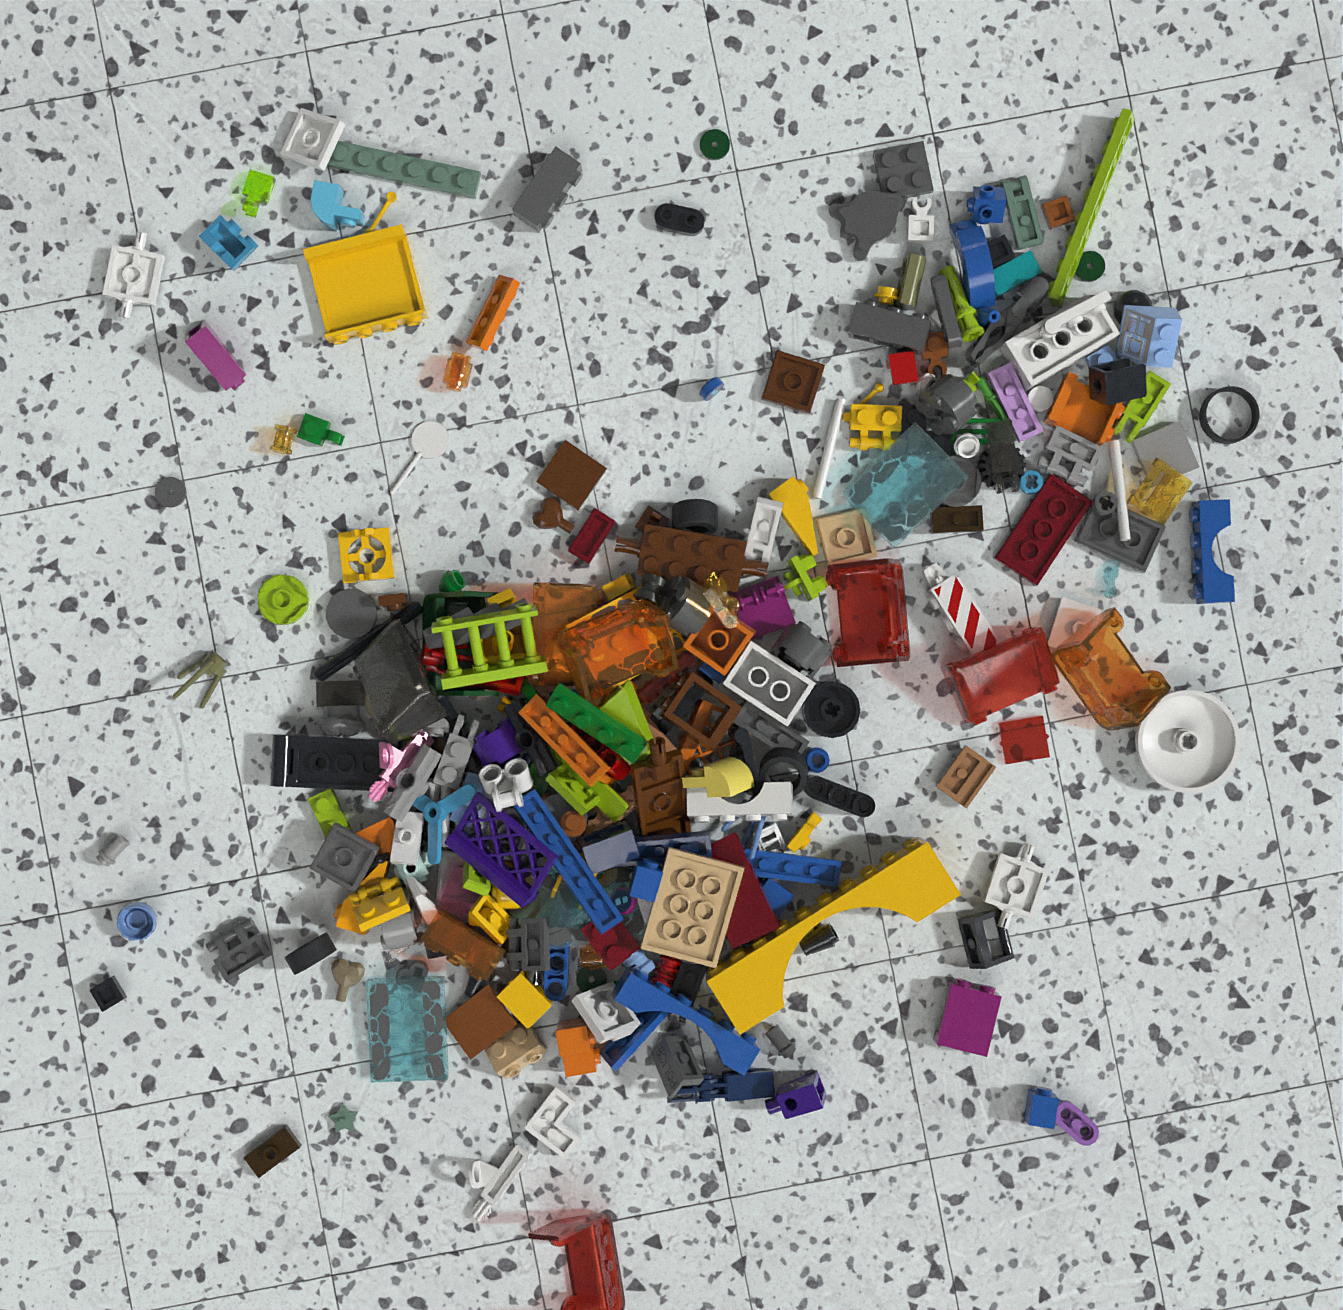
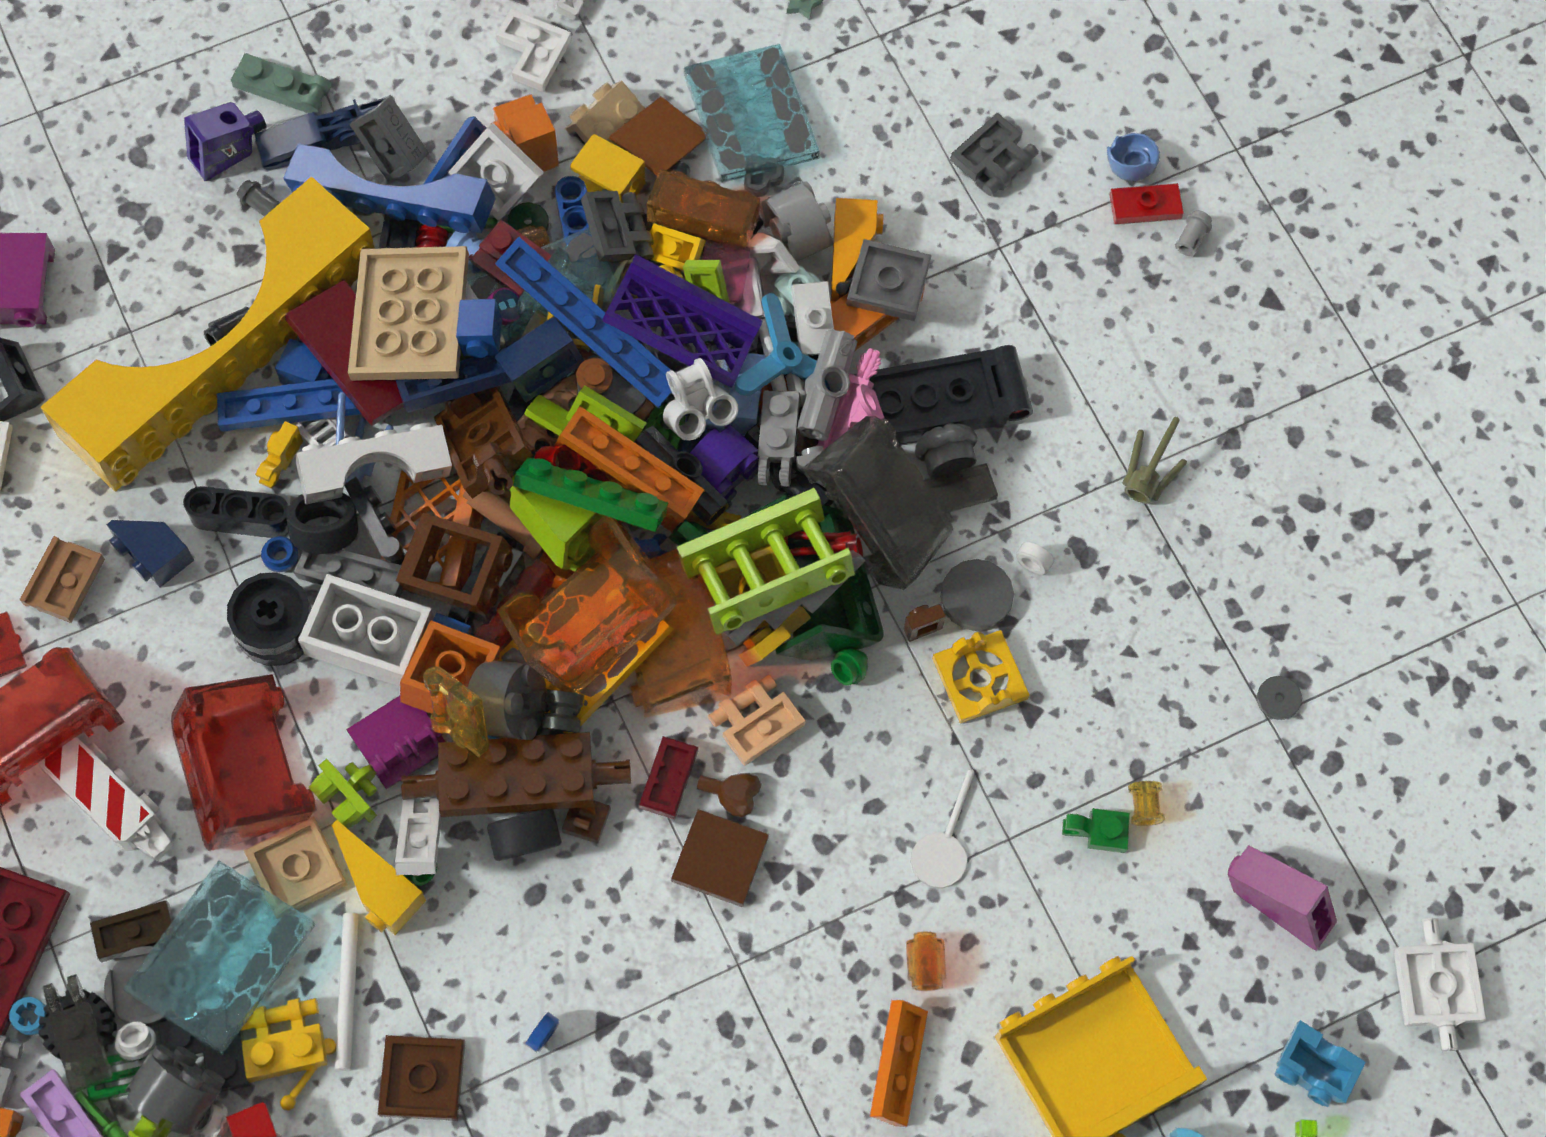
camera: 165 degrees right, 20 degrees down
(108, 993) = (1140, 71): black plate -> none
(139, 883) = (1146, 203): none -> red plate
(283, 599) = (1076, 592): lime tile -> none
(305, 627) = (1034, 558): none -> white tile
(310, 953) = (899, 163): black tyre -> none
(328, 811) = (926, 336): lime plate -> none
(346, 976) = (847, 155): dark tan rock -> none
(354, 650) = (942, 564): black axle -> none
(382, 908) = (819, 222): yellow plate -> none
(520, 554) = (761, 729): none -> light nougat plate
(619, 586) = (612, 717): yellow piece -> none
(721, 778) = (405, 479): light yellow brick -> none
(748, 1138) = (280, 83): none -> sand green plate
(802, 649) = (328, 685): dark grey brick -> none
(900, 782) = (153, 546): none -> dark blue slope

